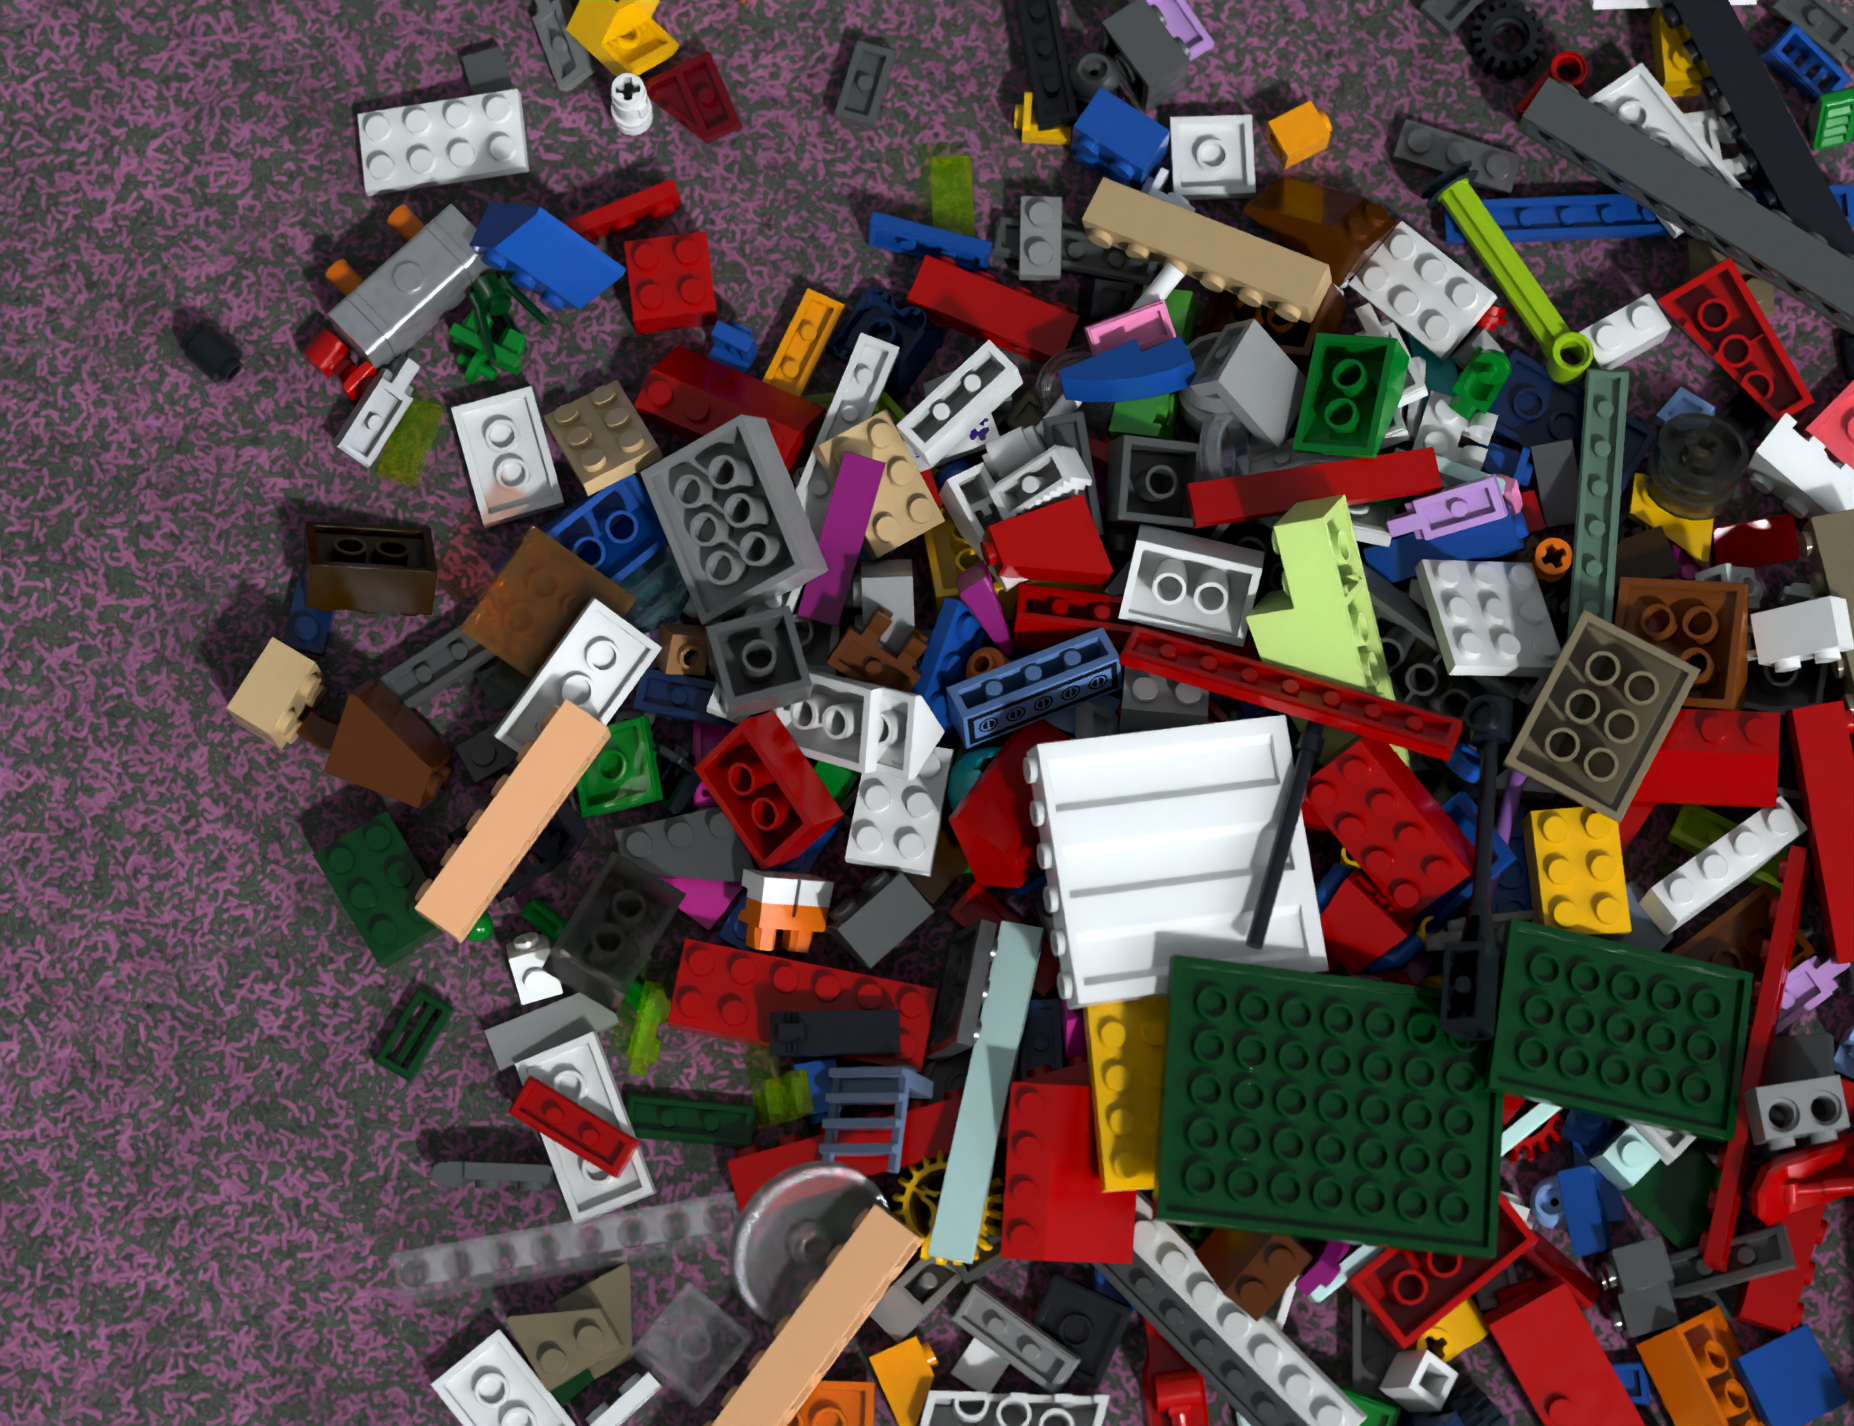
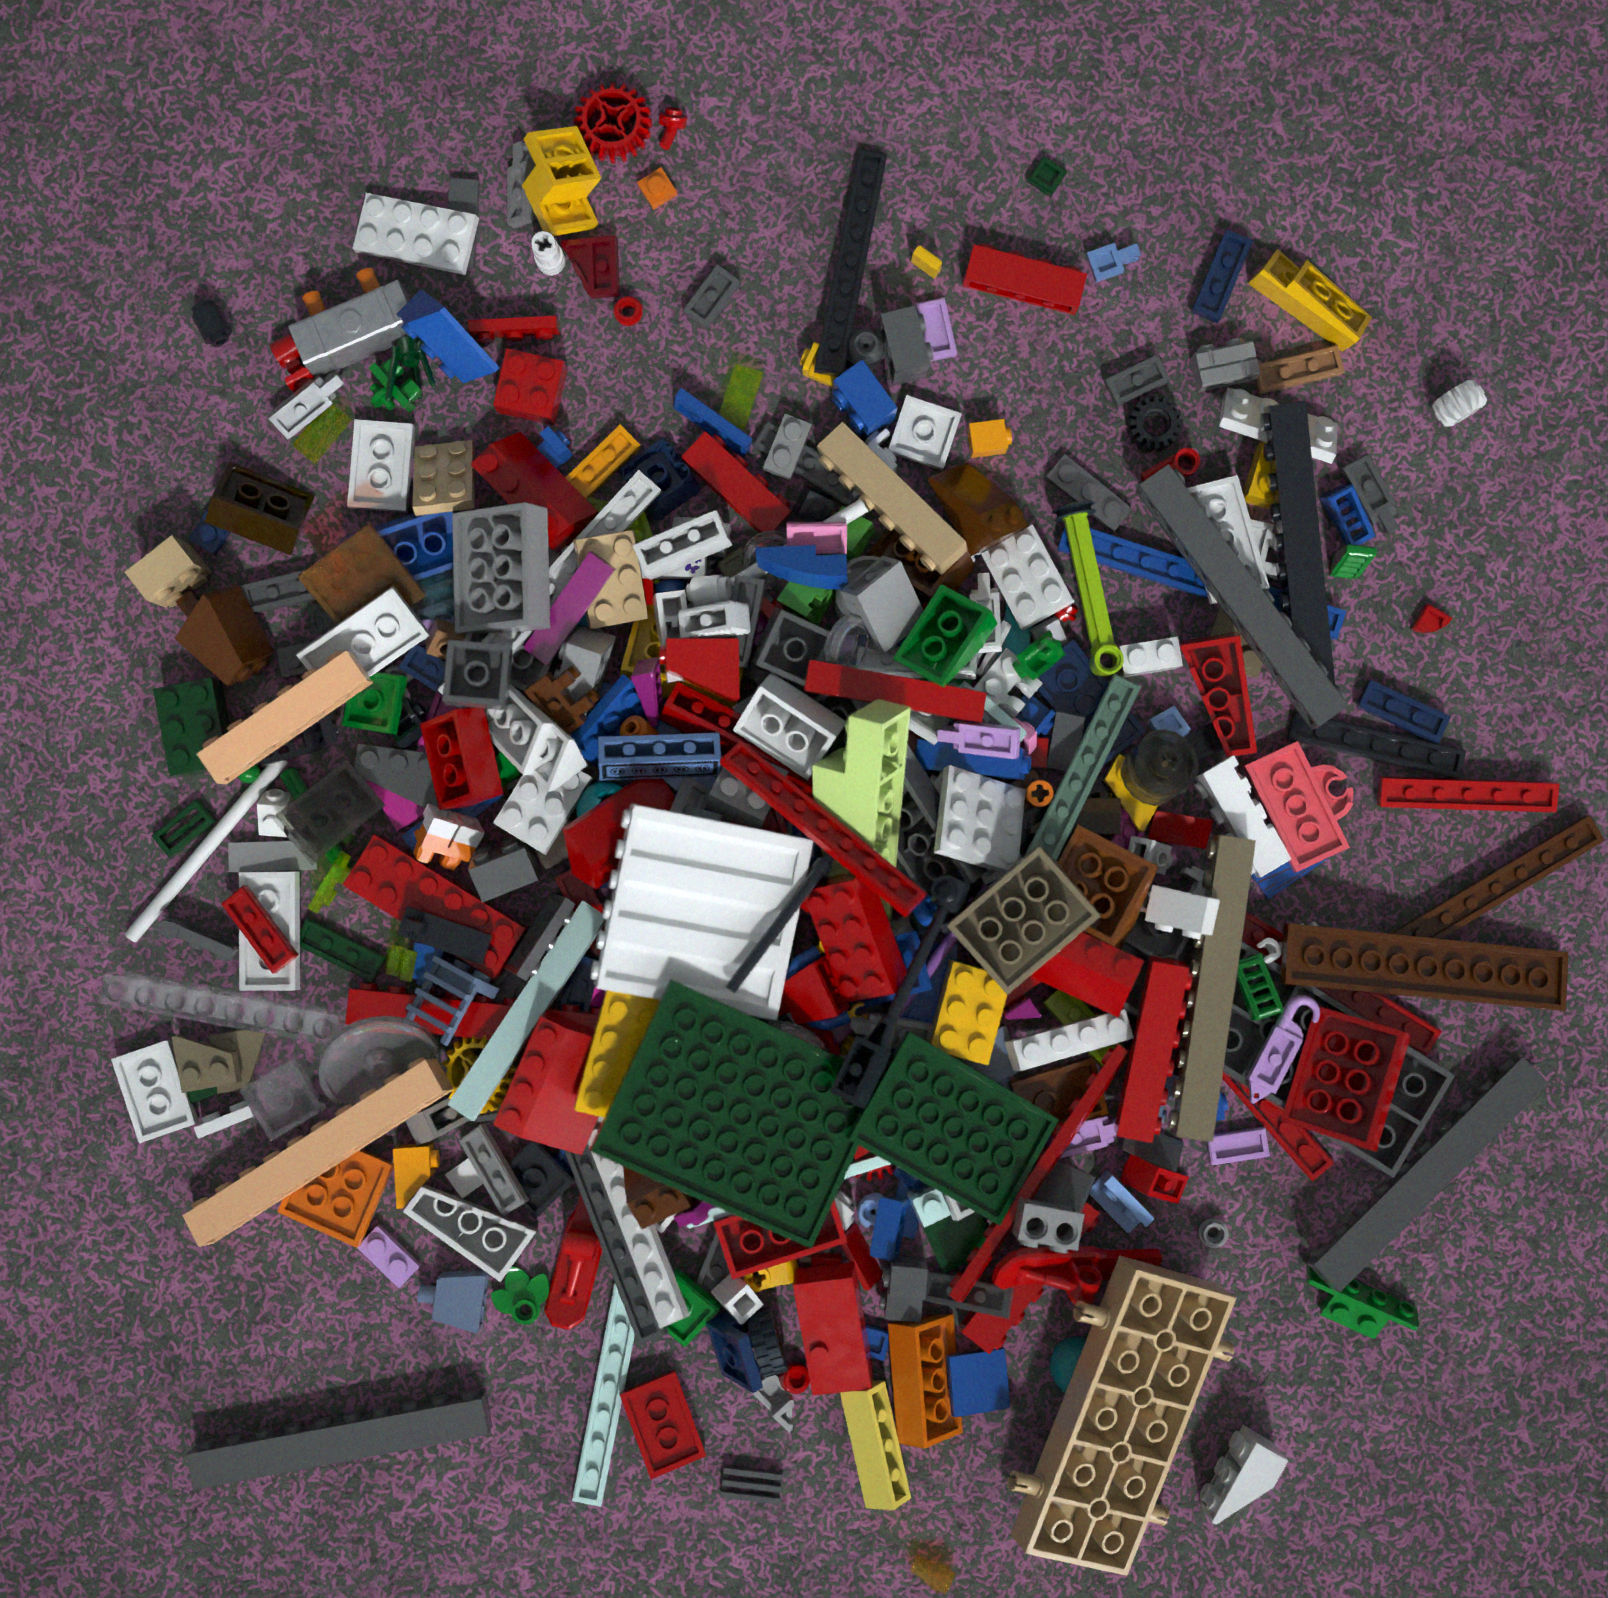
camera: 20 degrees right, 10 degrees up
(453, 1054) = (204, 850): none -> white piece
(756, 131) = (624, 303): none -> red plate
(1645, 849) = (1021, 1009): none -> magenta slope

